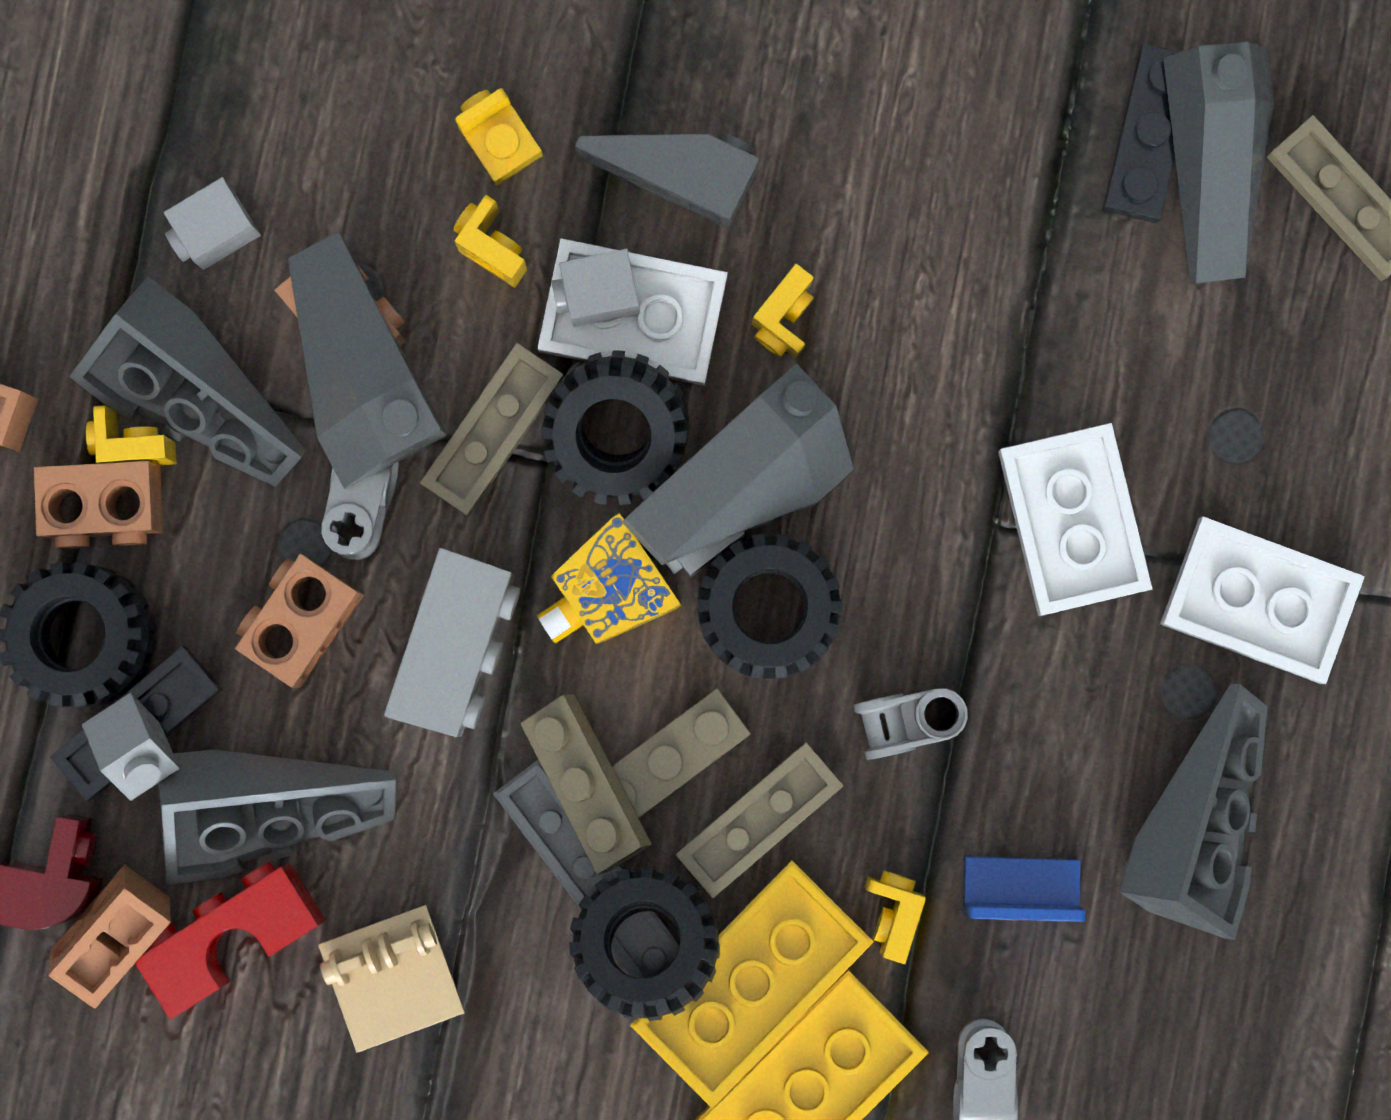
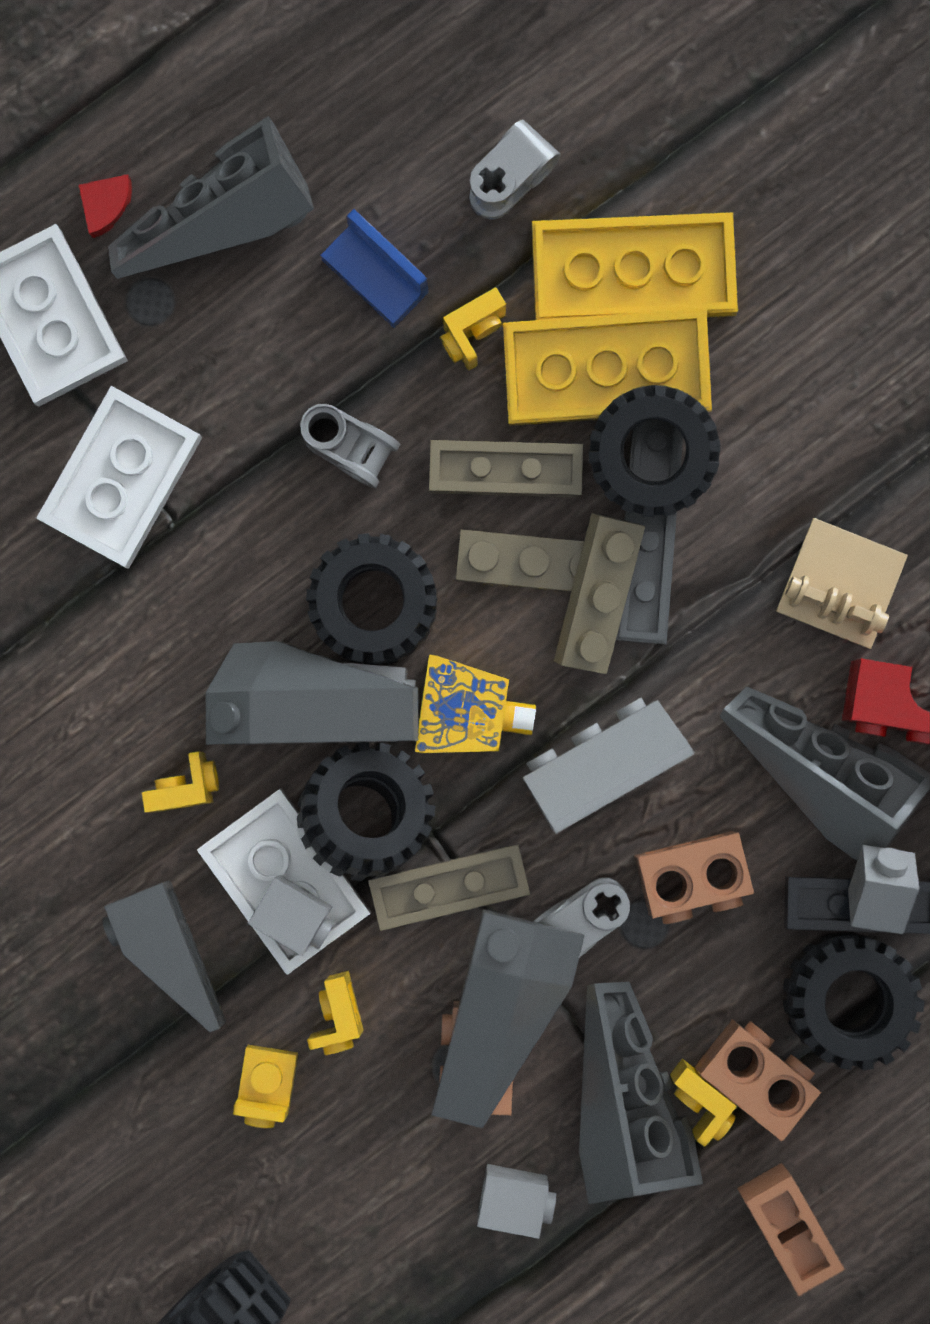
camera: 135 degrees left, 0 degrees up
(1303, 740) = (105, 202): none -> red tile

